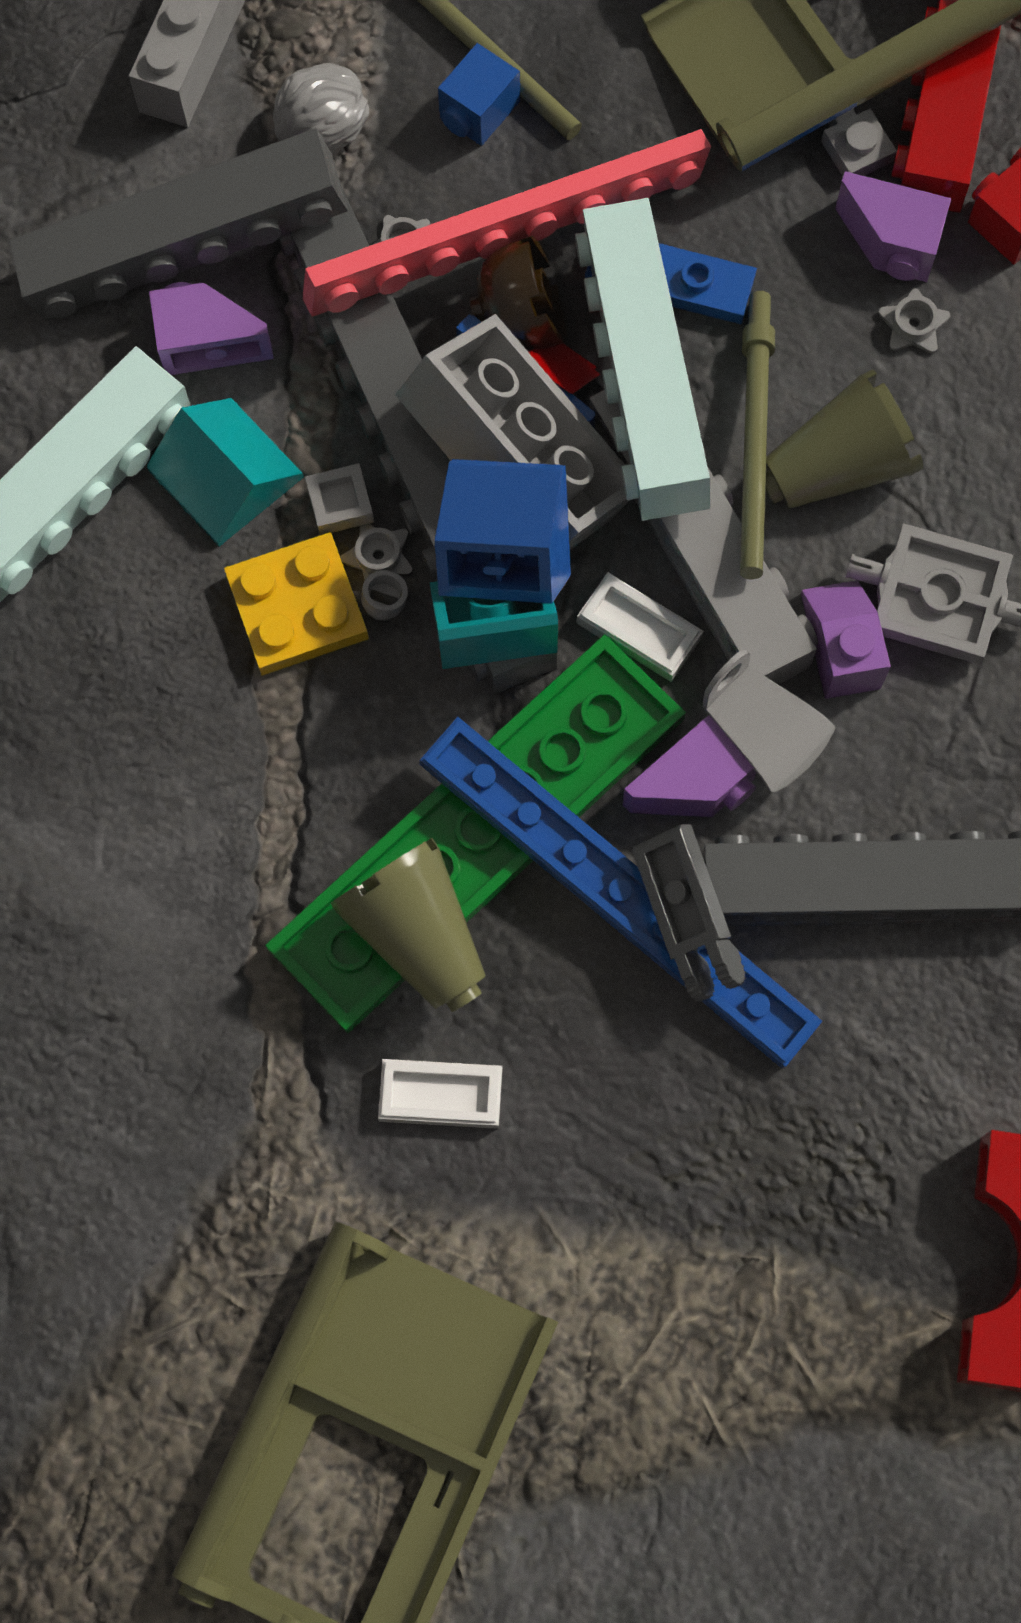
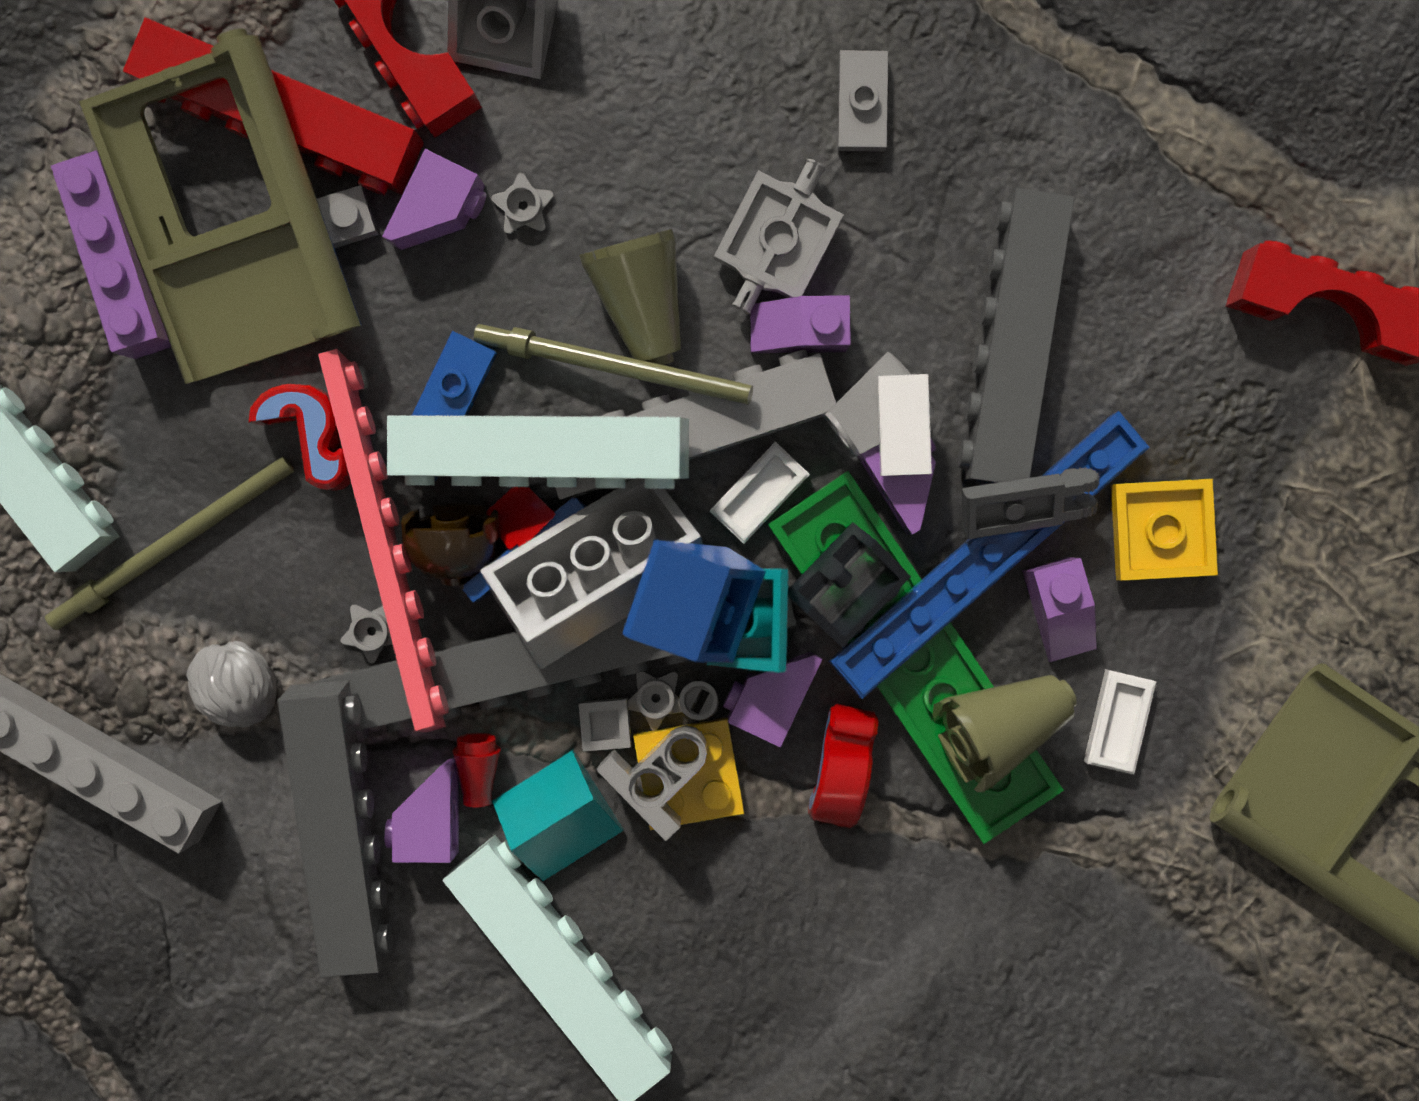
camera: 80 degrees left, 15 degrees up
(268, 371) = (476, 767): none -> red cone
(295, 567) = (663, 764): none -> light grey tile
(333, 762) = (844, 766): none -> red animal
(400, 674) = (771, 700): none -> medium lavender slope
(478, 95) = (242, 543): blue brick -> none
(549, 722) = (848, 584): none -> black window
(568, 991) = (1062, 607): none -> medium lavender slope
(638, 127) = (318, 432): none -> animal
(688, 1100) = (1164, 529): none -> yellow plate
(752, 748) = (904, 425): none -> white tile

